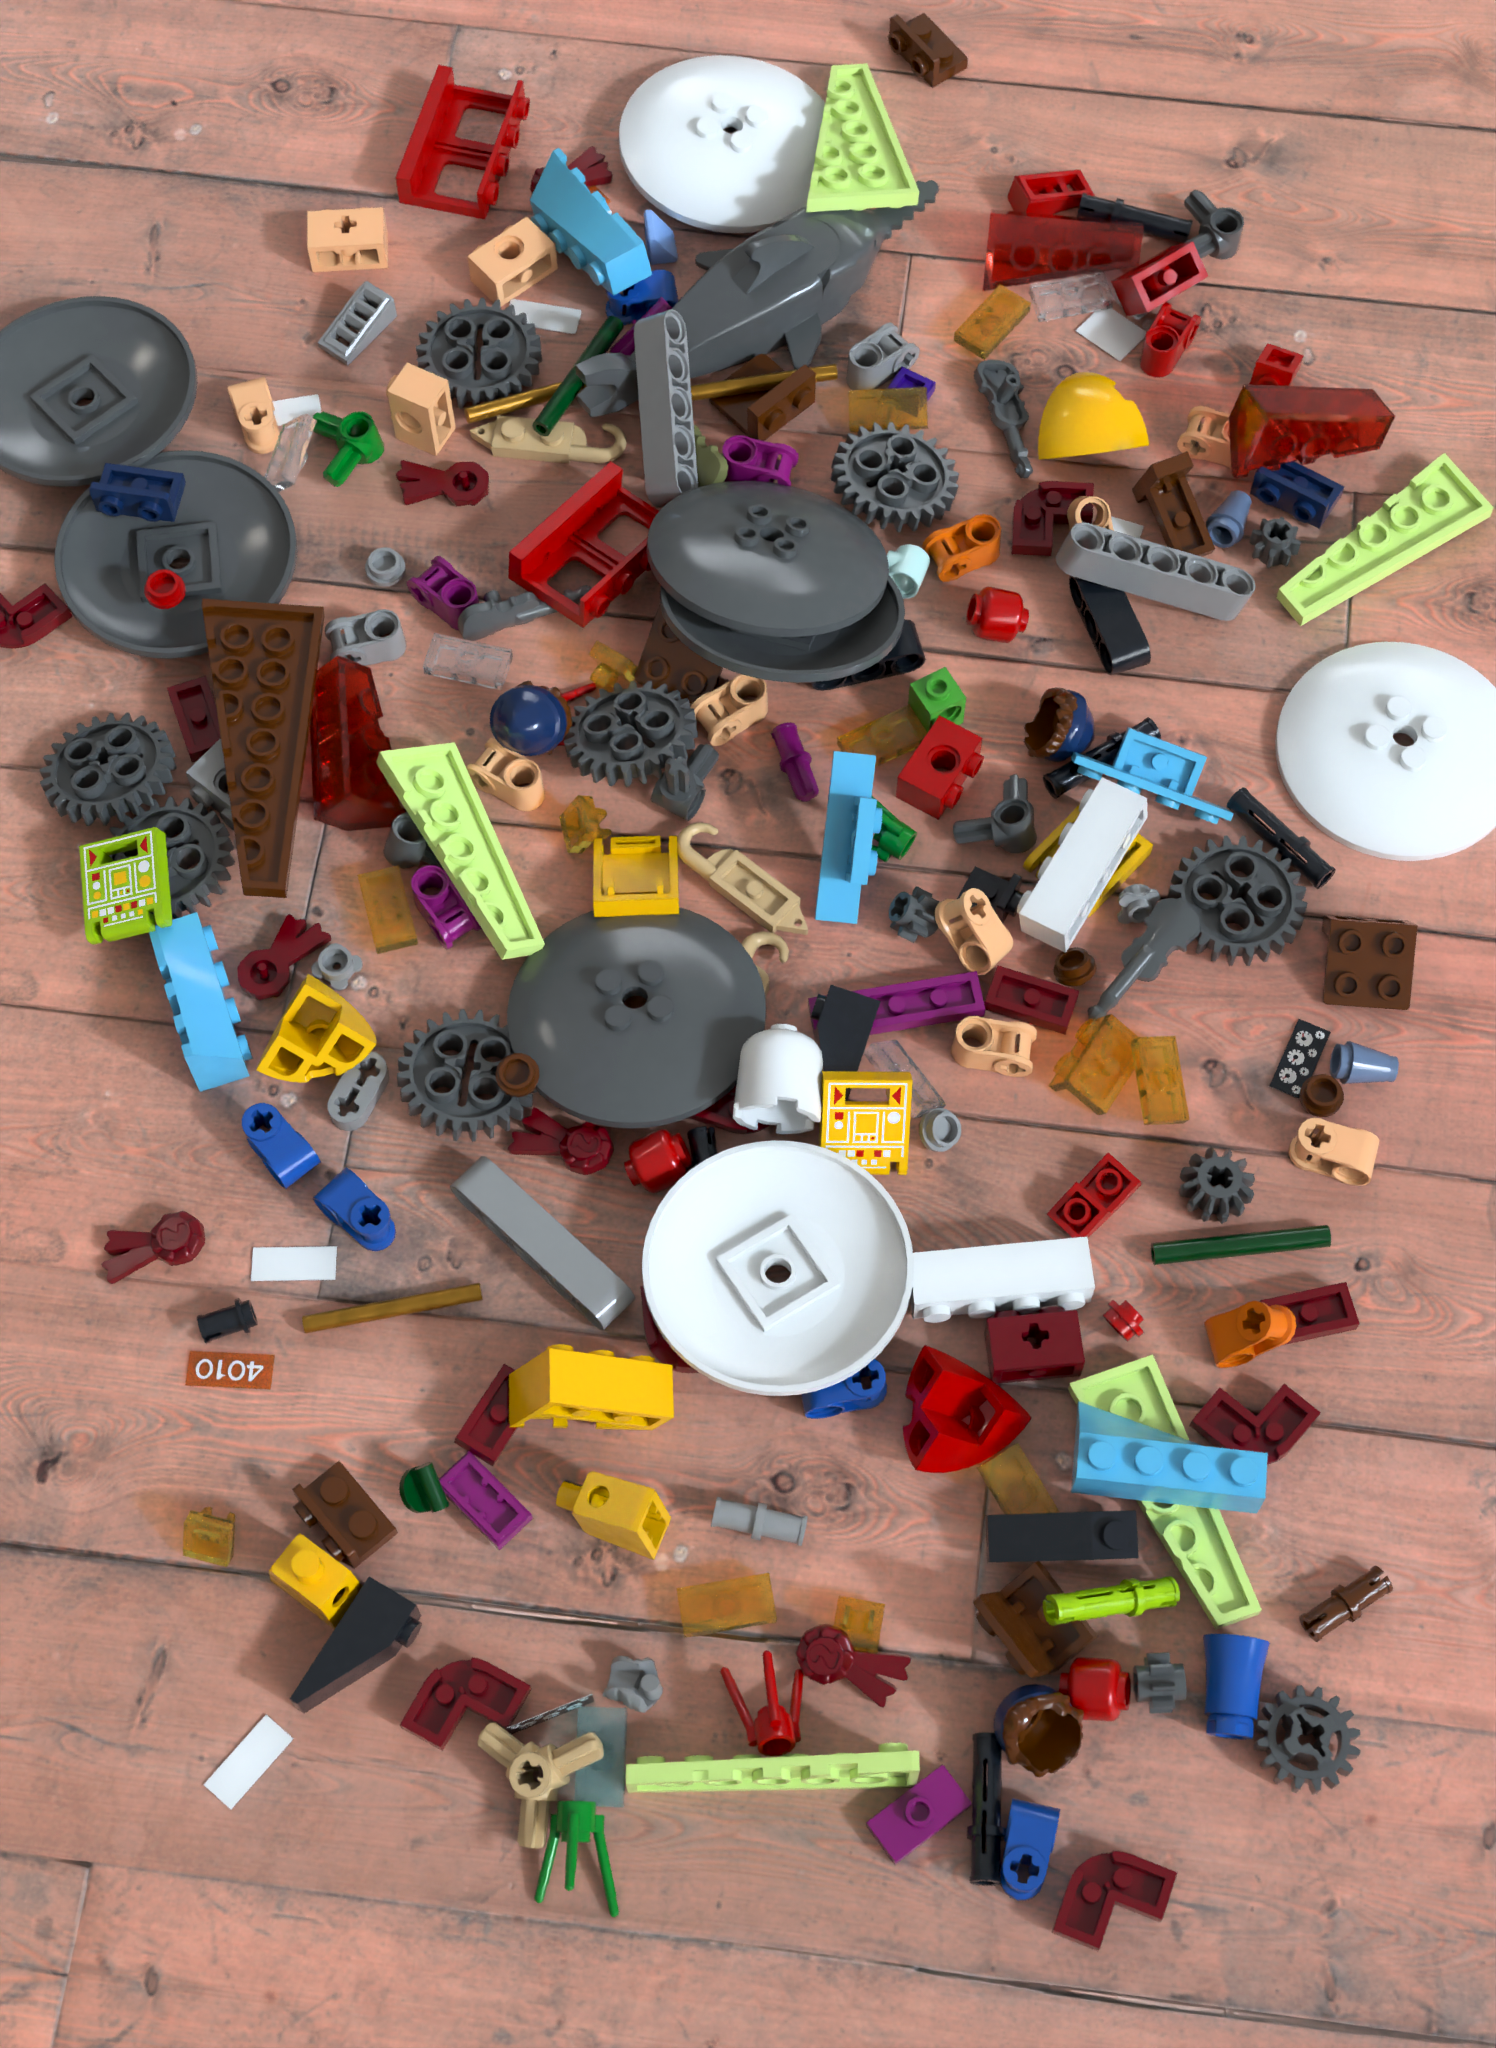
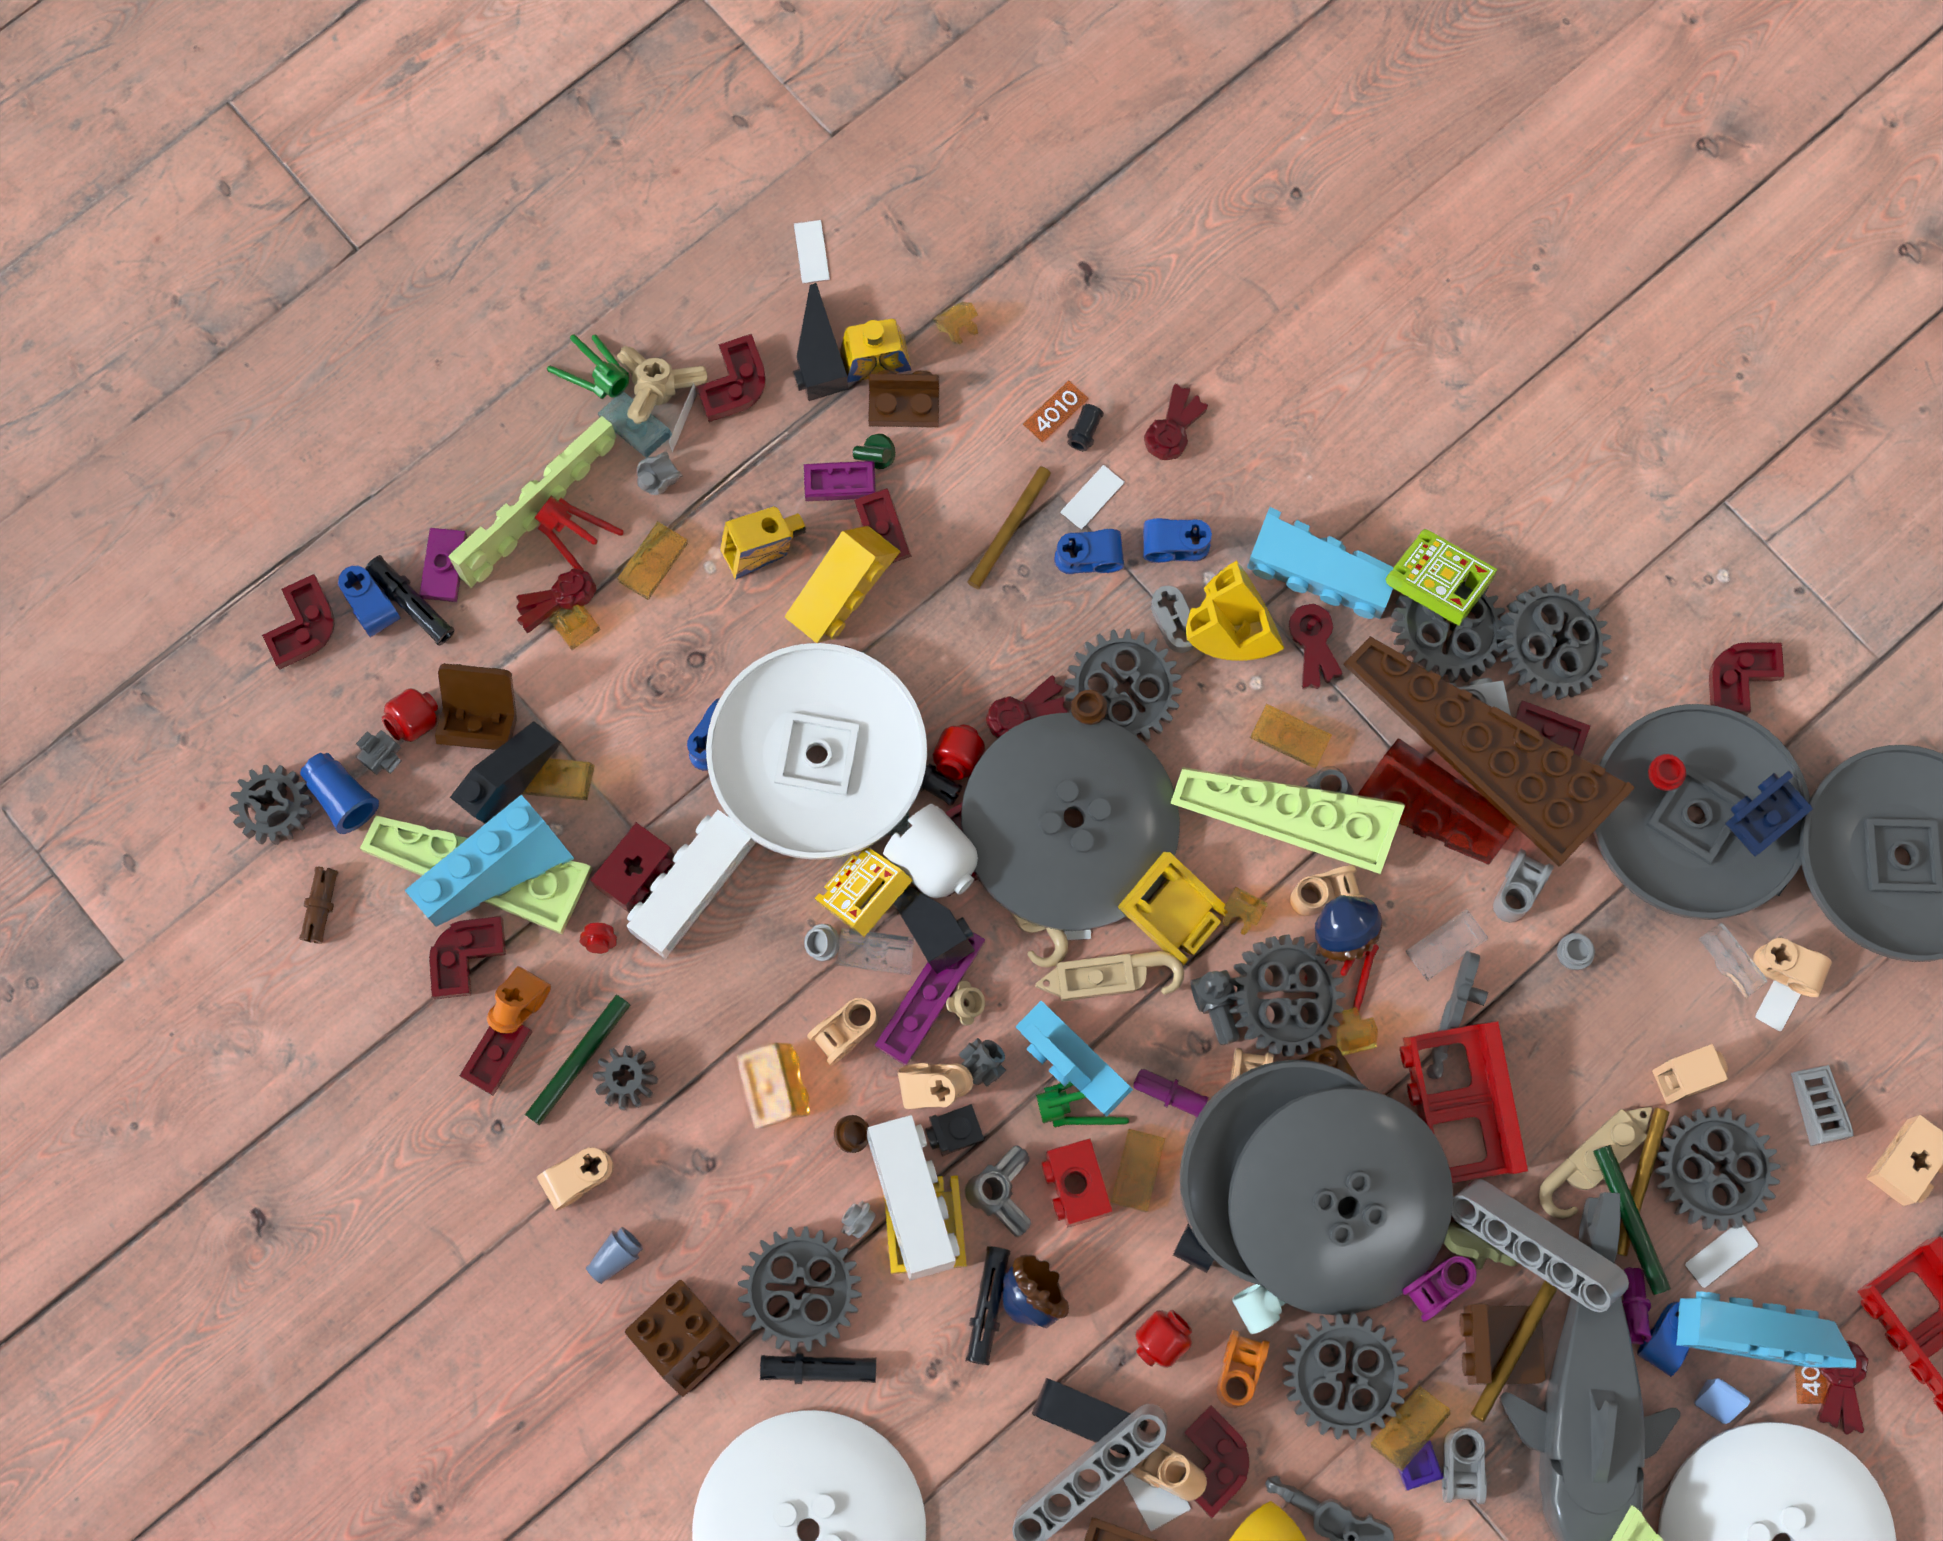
camera: 130 degrees right, 10 degrees up
(334, 955) = (1279, 664): light grey plate -> none
(356, 440) = (1719, 1015): green axle -> none
(443, 591) = (1520, 970): magenta piece -> none
(445, 911) = (1259, 762): magenta piece -> none
(461, 483) = (1607, 1063): dark red piece -> none
(512, 261) = (1775, 1282): light nougat brick -> none
(542, 1243) = (969, 641): light grey beam -> none
(759, 1521) = (682, 619): light grey pin -> none
(876, 970) = (974, 1002): none -> tan plate
(937, 696) = (1129, 1226): bright green brick -> none
(957, 1415) = (636, 784): red brick -> none
(1031, 999) = (856, 1084): dark red plate -> none
(1038, 1729) = (418, 659): reddish brown hair -> none
(1094, 1198) = (691, 998): red slope -> none
(1127, 1598) = (426, 802): lime pin -> none
(1156, 767) = (936, 1320): medium azure bracket -> none
(1159, 1080) = (725, 1110): clear yellow plate -> none
(1168, 929) = (817, 1217): dark grey piece -> none
(1299, 1058) = (660, 1226): black sticker -> none
(1321, 1095) = (621, 1209): reddish brown plate -> none

